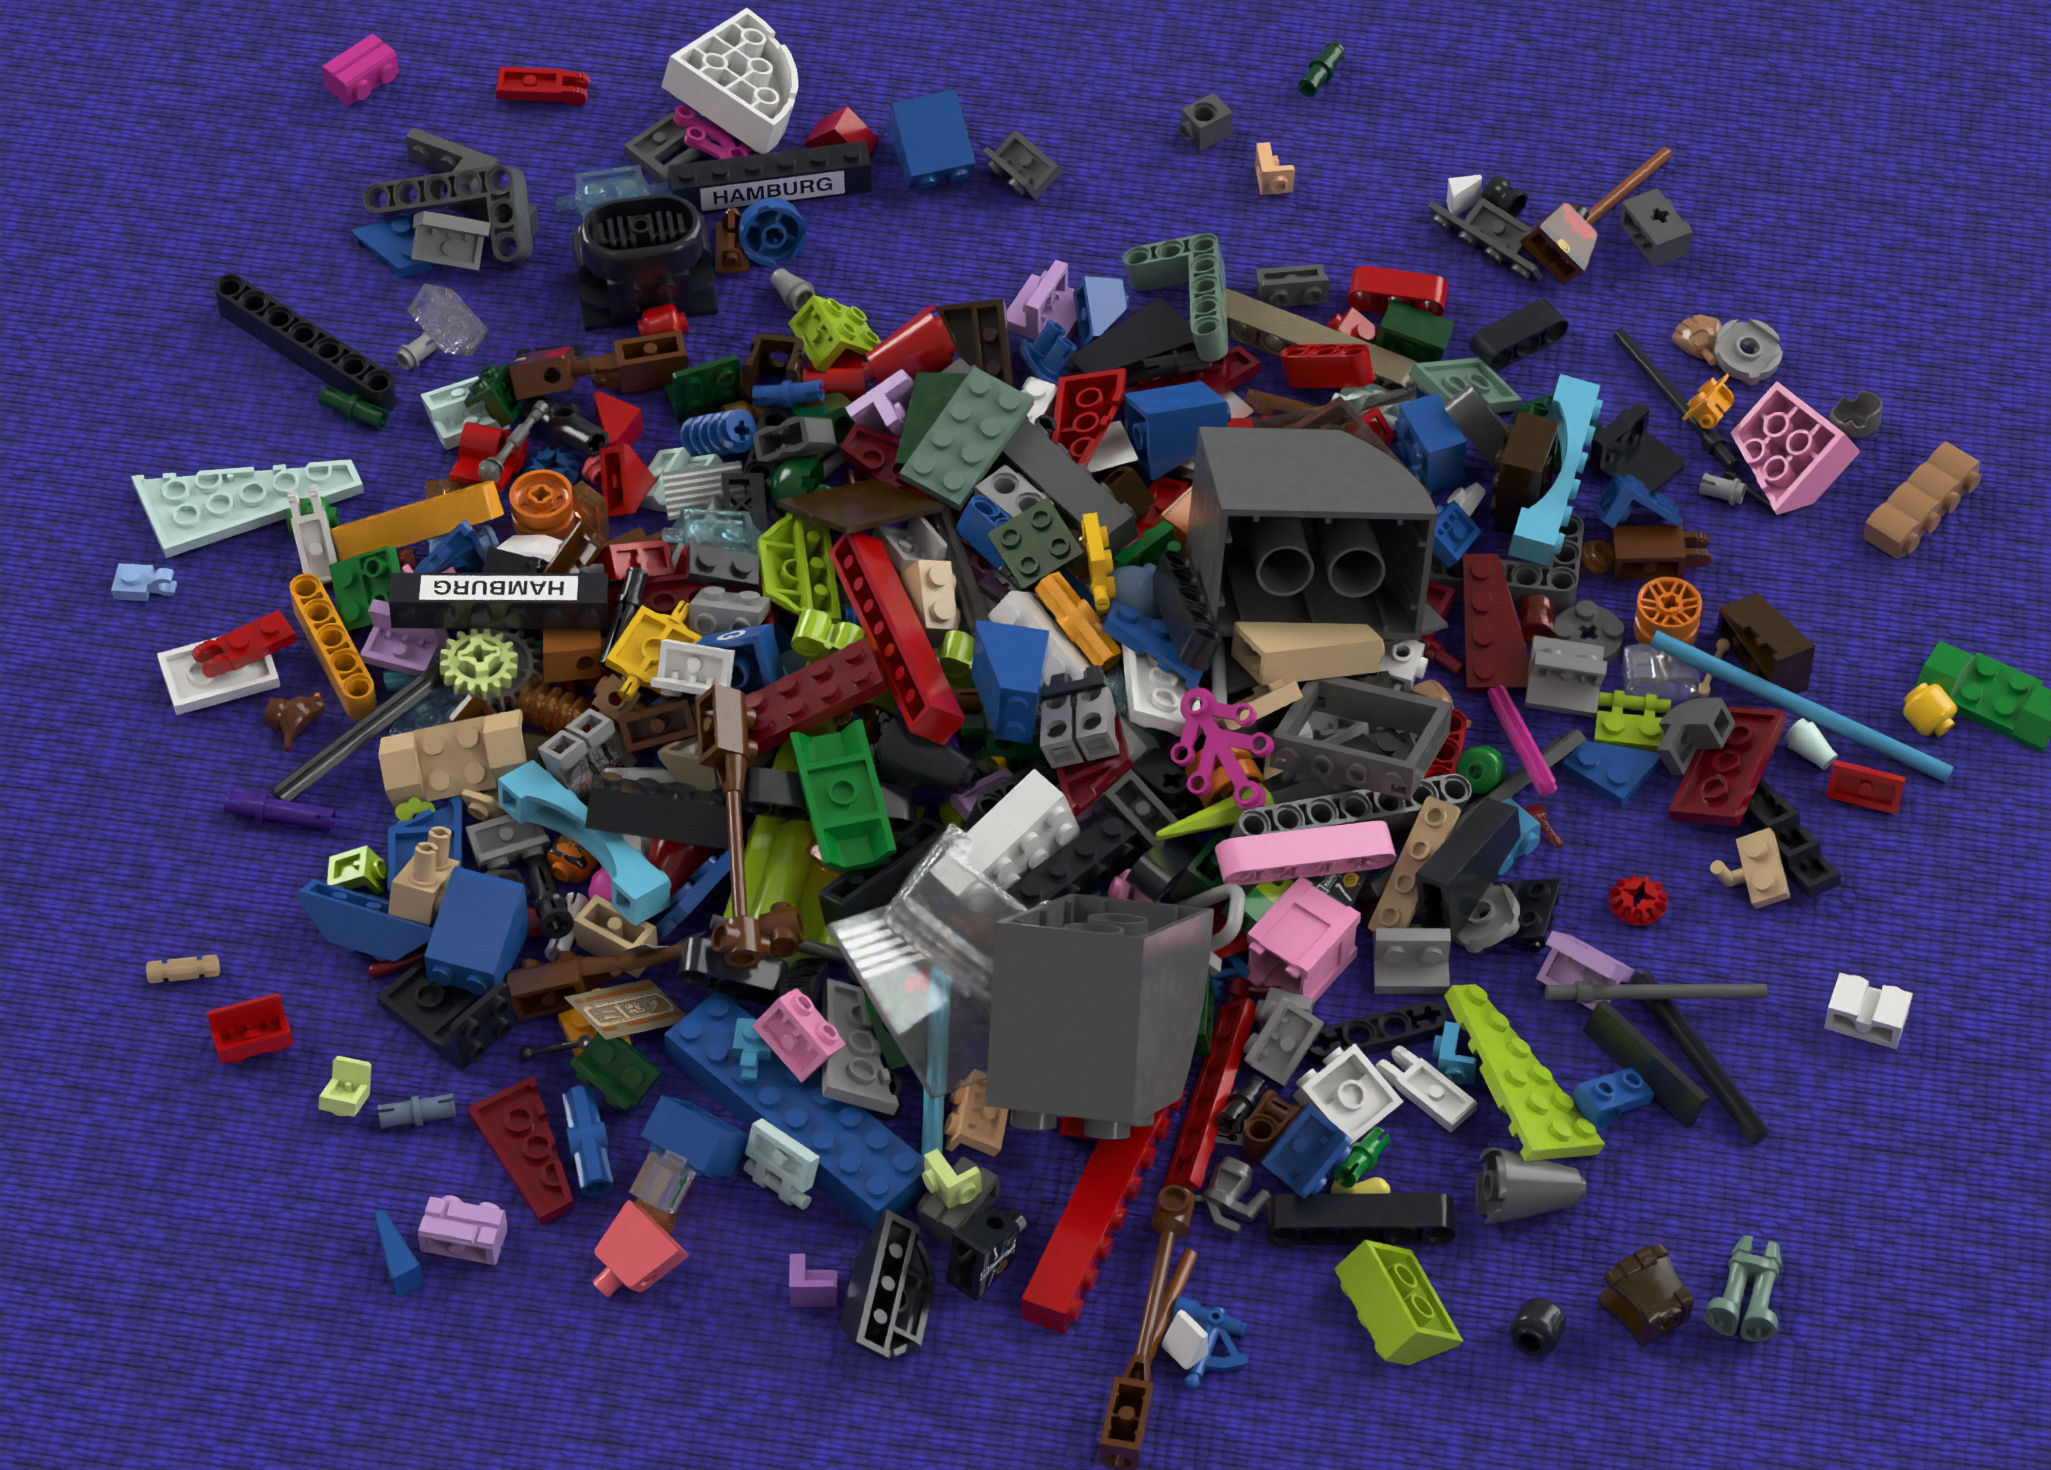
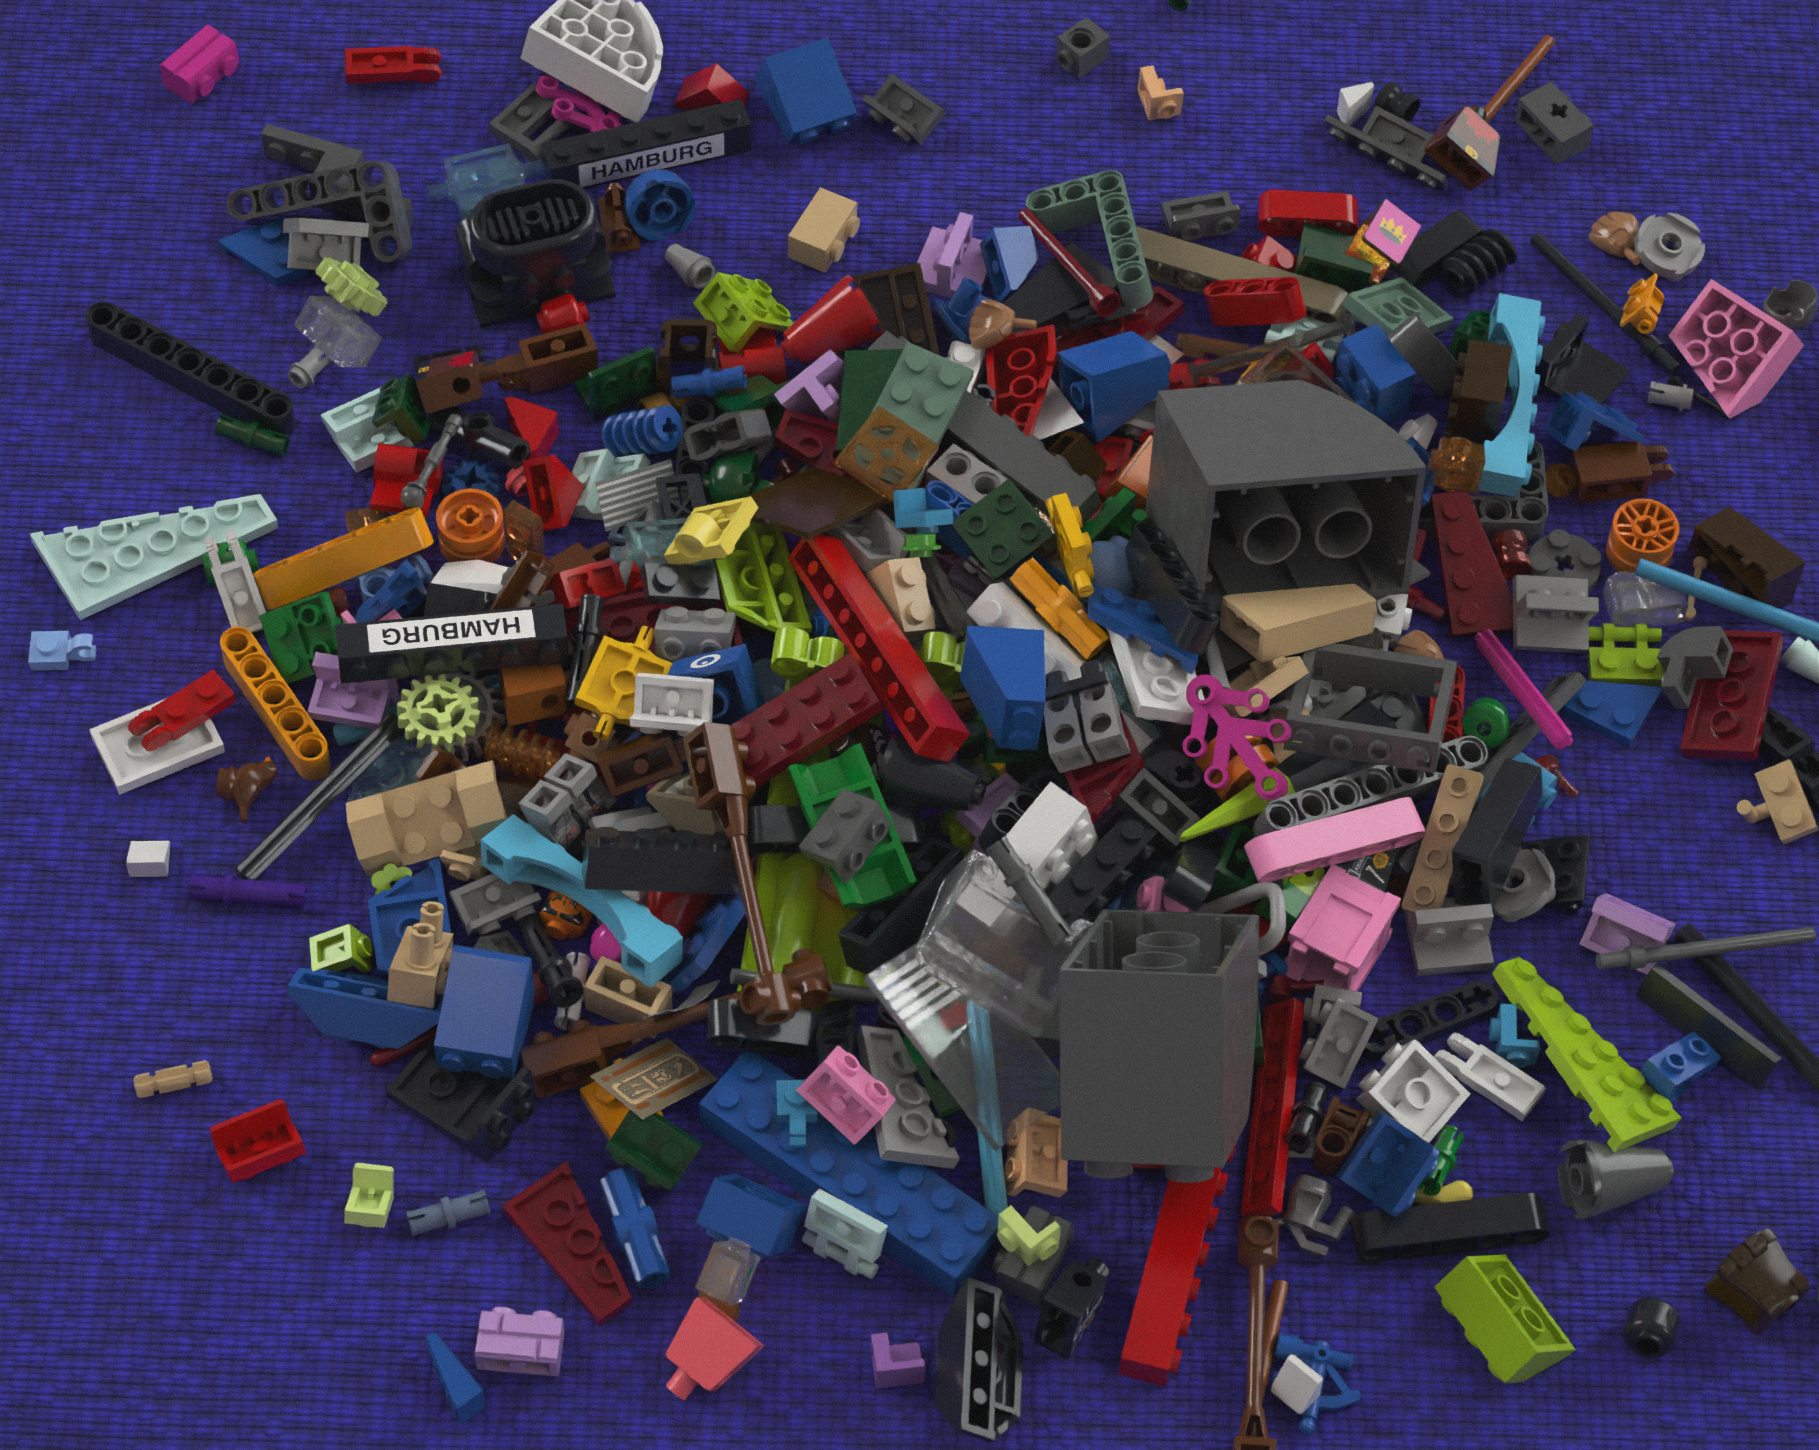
camera: 10 degrees left, 5 degrees up
(193, 774) = (148, 858): none -> white slope
(467, 280) = (351, 286): none -> yellowish green gear
(527, 1053) = (613, 1119): black hinge -> none
(757, 521) = (711, 531): none -> light yellow plate
(835, 799) = (846, 834): none -> dark grey bracket
(924, 267) = (823, 230): none -> tan brick
(937, 434) = (869, 476): none -> clear orange piece
(953, 519) = (912, 512): none -> dark azure bracket
(954, 550) = (921, 545): none -> bright green plate
(993, 857) = (1029, 891): none -> dark grey pin
(1068, 362) = (993, 323): none -> medium nougat piece
(1176, 347) = (1102, 297): none -> dark red piece
(1464, 320) = (1383, 239): none -> piece
(1491, 528) = (1457, 464): none -> clear orange brick
(1553, 349) = (1477, 262): none -> black piece
(1648, 910) = (1650, 851): red gear -> none

